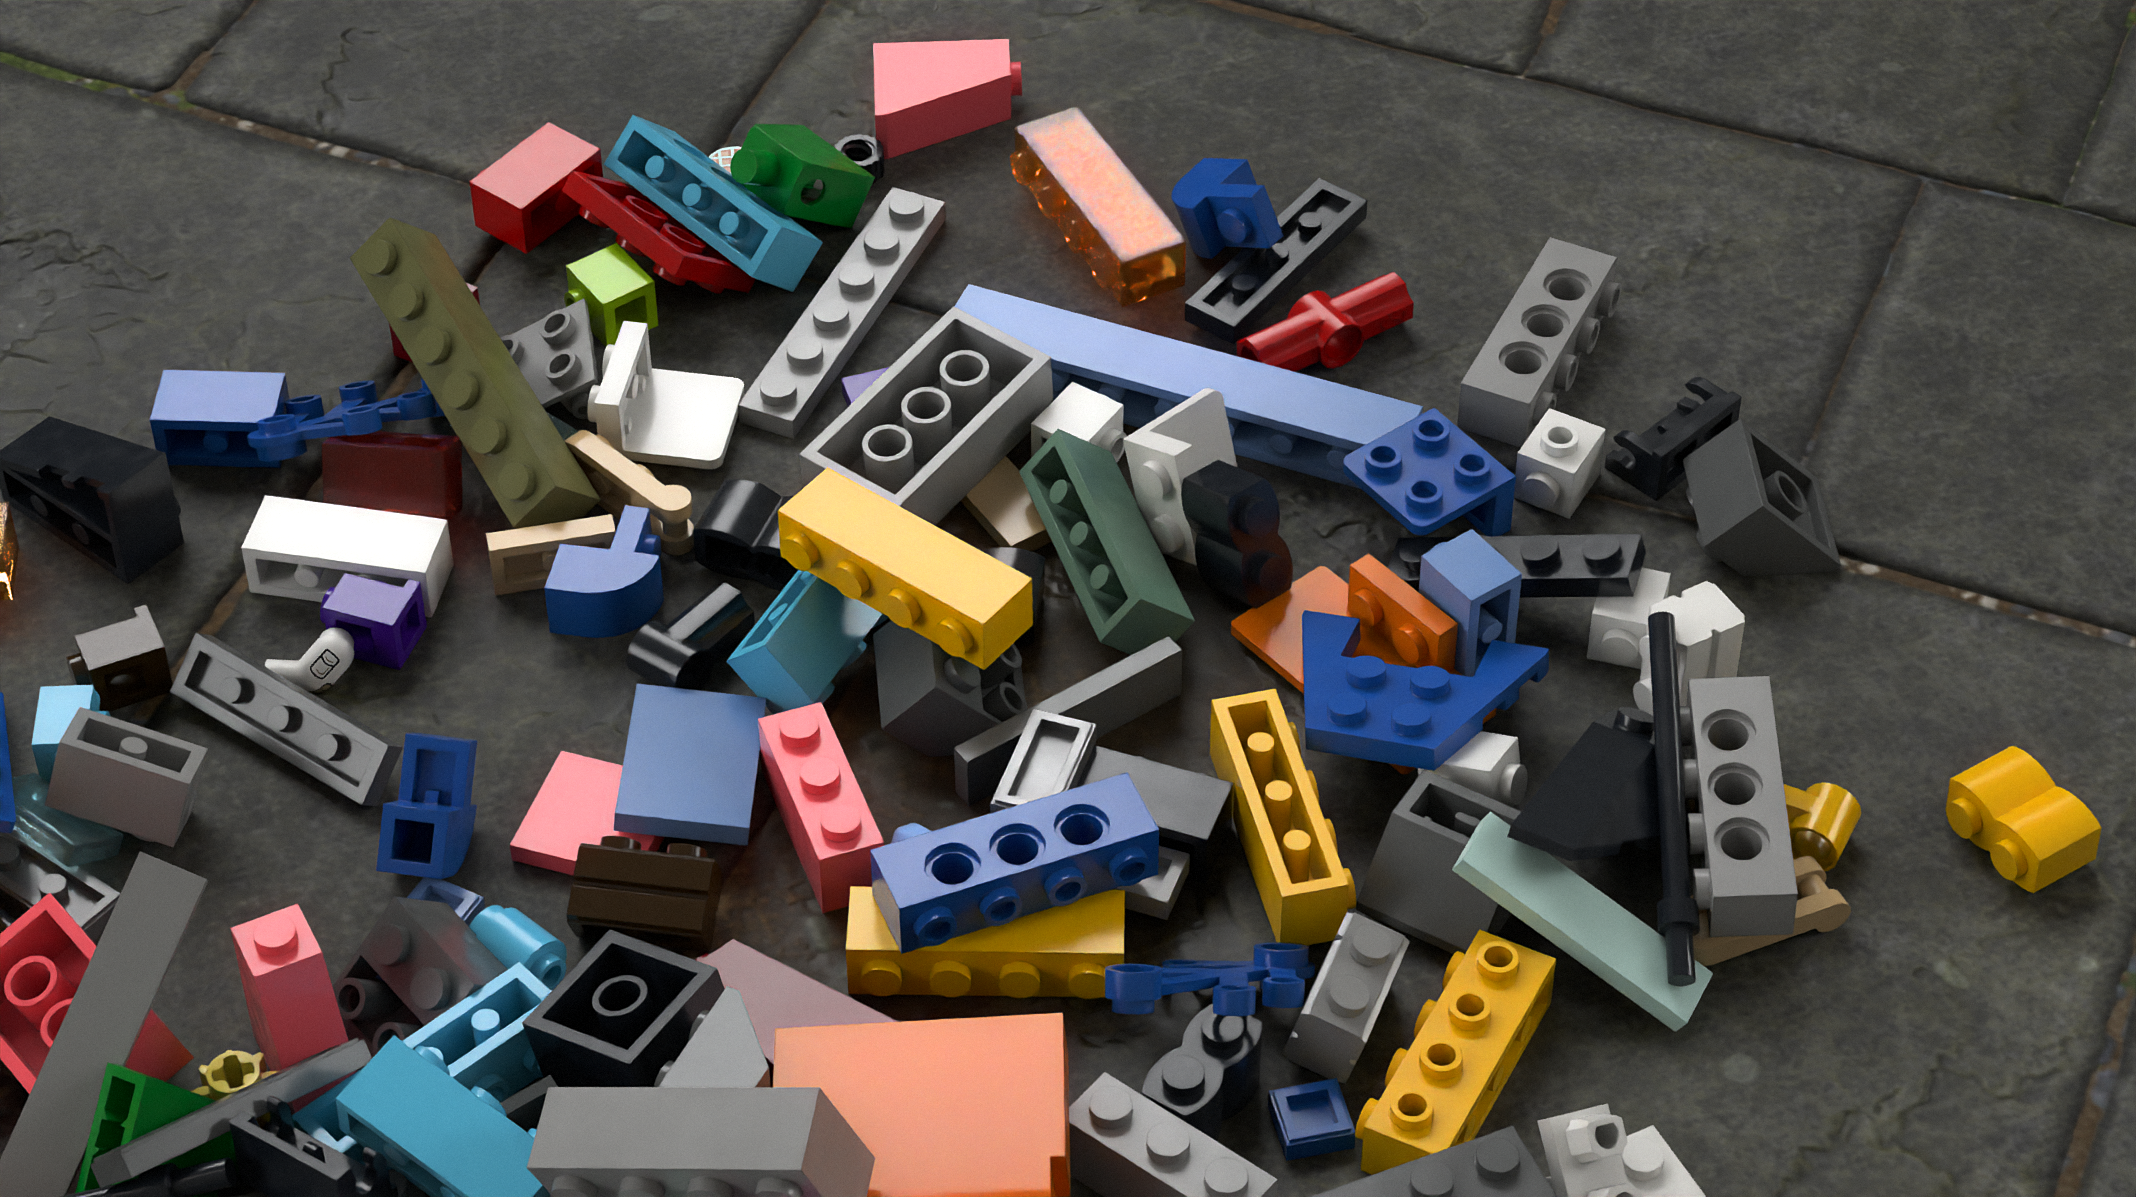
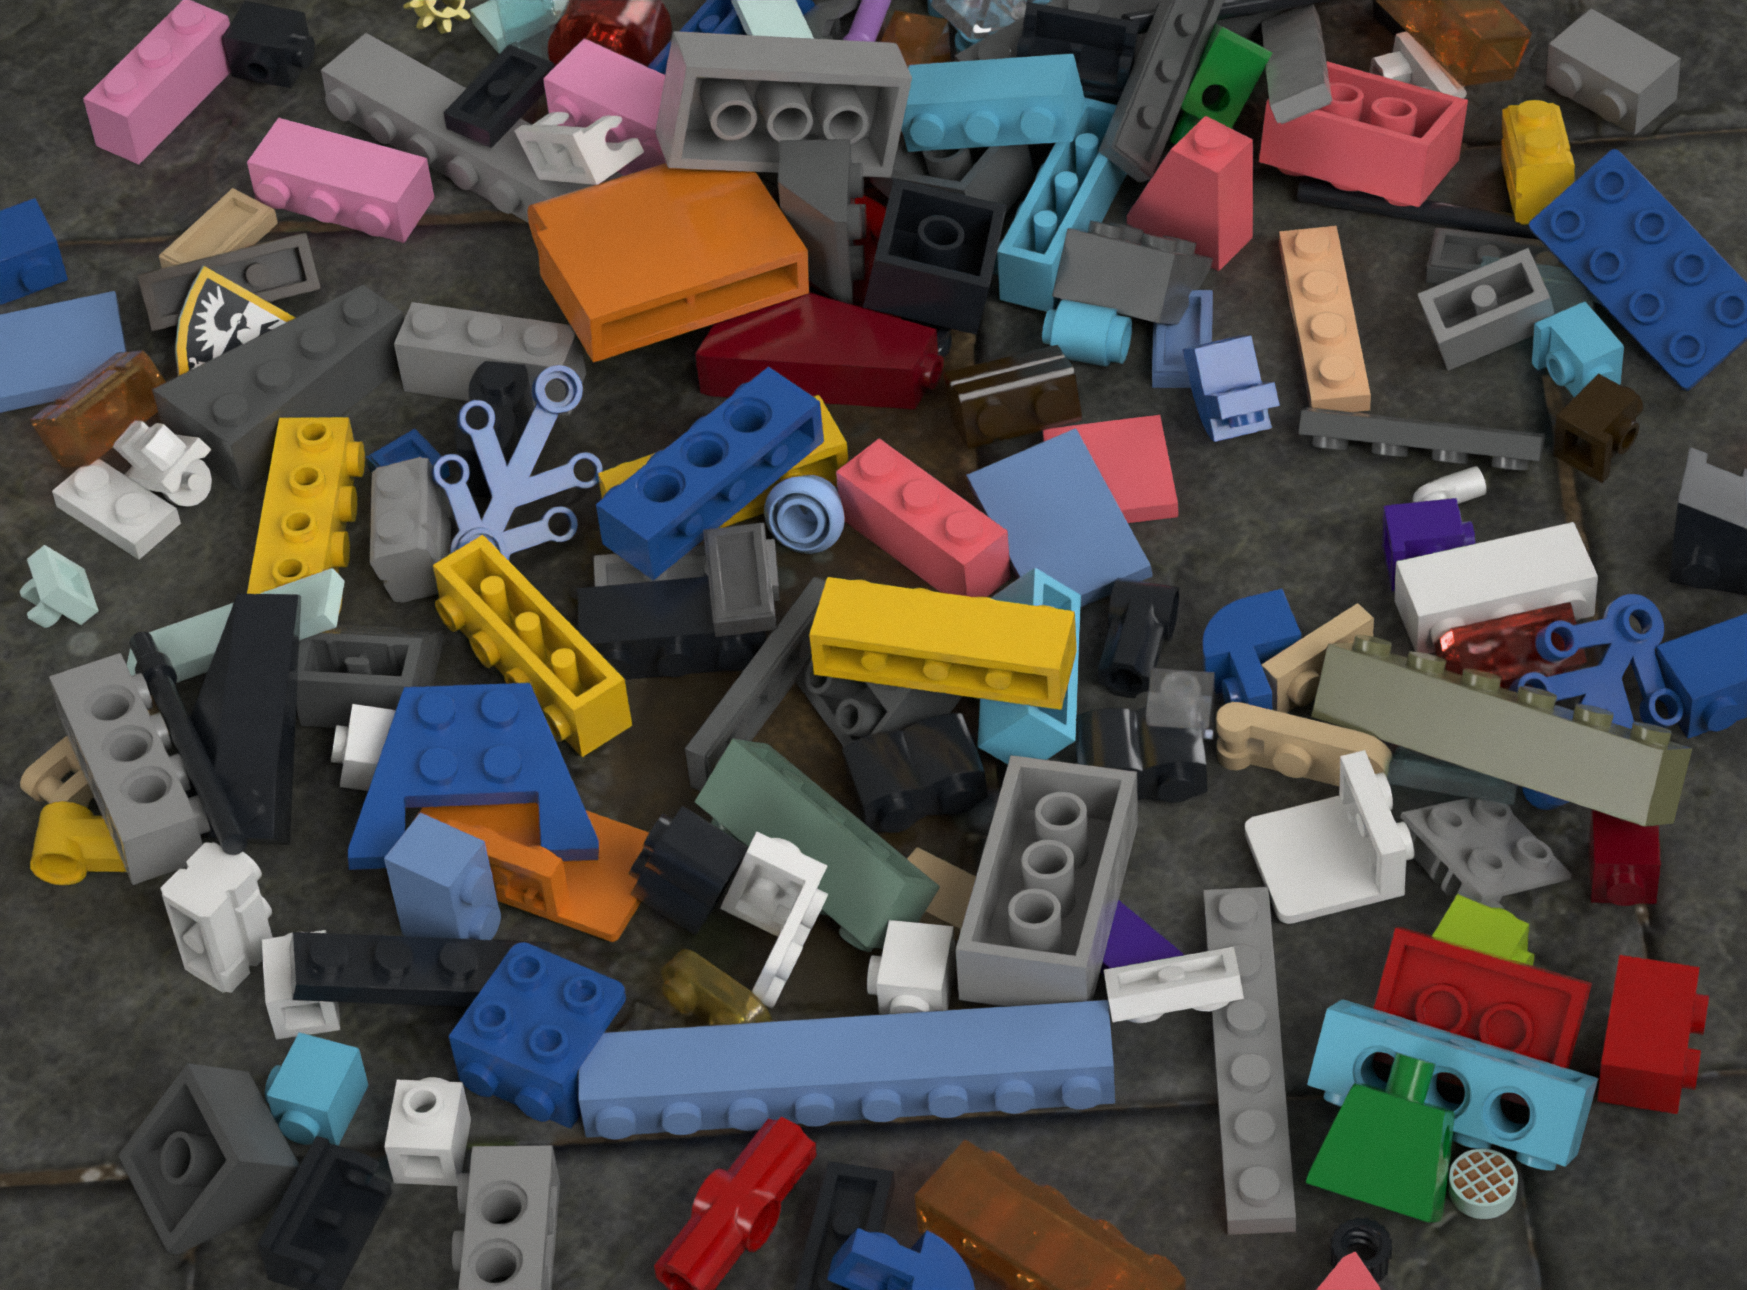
camera: 160 degrees right, 5 degrees up
(275, 876) = (1324, 319): none -> light nougat plate
(703, 538) = (1182, 700): none -> clear bracket
(871, 320) = (1173, 984): none -> white plate
(1256, 455) = (708, 992): none -> clear yellow plate
(1657, 513) = (316, 1089): none -> medium azure brick
(1754, 1098) = (57, 589): none -> light aqua tile

